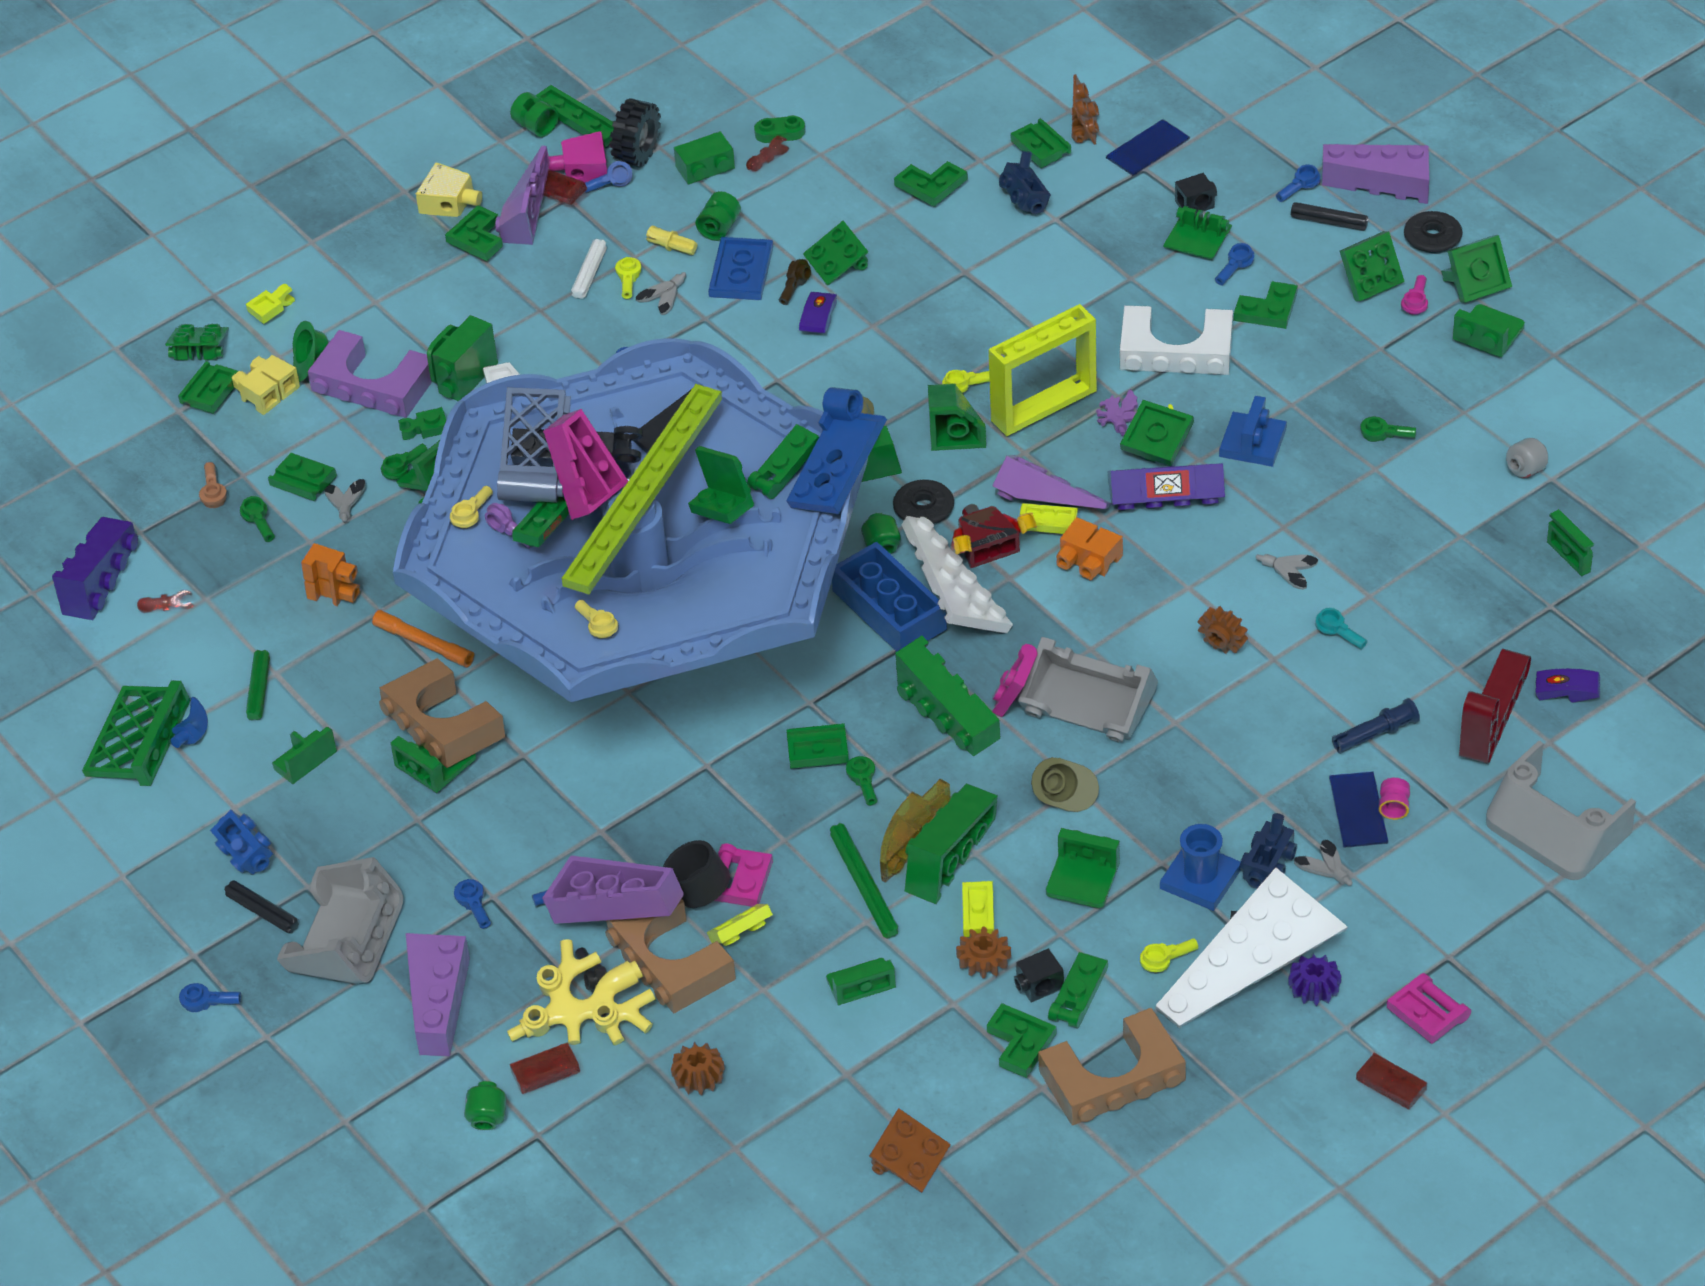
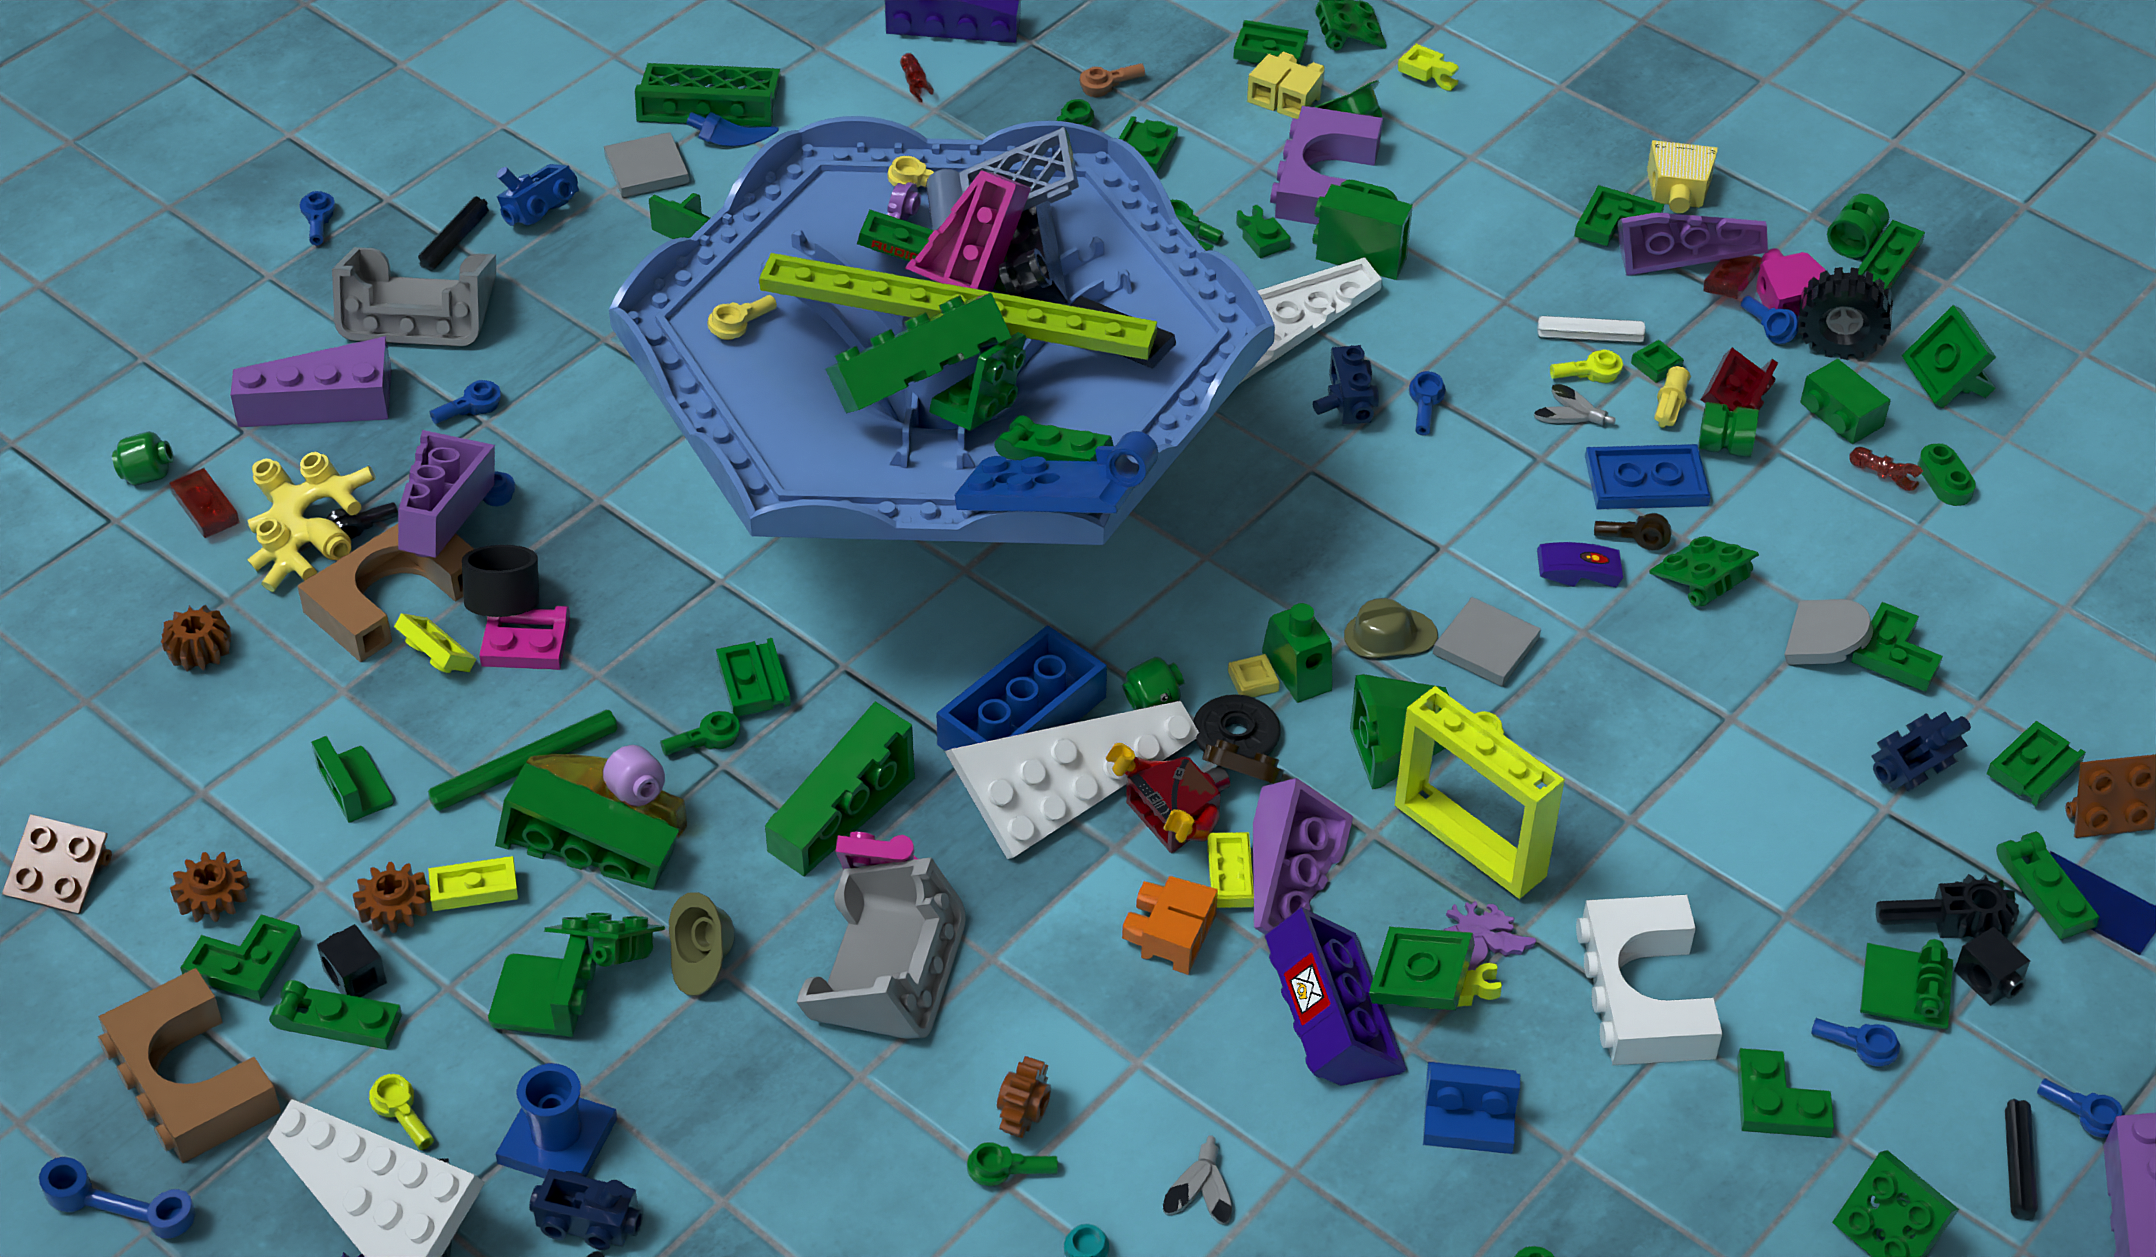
camera: 75 degrees right, 0 degrees up
(215, 779) = (646, 164): none -> light grey tile
(629, 243) = (1656, 360): none -> green tile
(675, 202) = (1739, 382): none -> dark red bracket
(685, 97) = (1951, 358): none -> green bracket
(698, 498) = (917, 351): none -> green wedge
(874, 370) = (1486, 641): none -> light grey tile
(876, 488) = (1253, 676): none -> light yellow tile
(911, 207) = (1827, 631): none -> light grey tile
(925, 793) = (634, 775): none -> lavender head
(952, 1056) = (210, 887): none -> dark orange gear
(961, 499) = (1227, 756): none -> dark brown plate
(1048, 825) = (612, 940): none -> green hinge
(1135, 160) = (2047, 885): none -> green plate
(1150, 194) = (1957, 909): none -> black gear
(1235, 1079) = (70, 1189): none -> blue piece
(1261, 657) = (992, 1164): none -> green plate

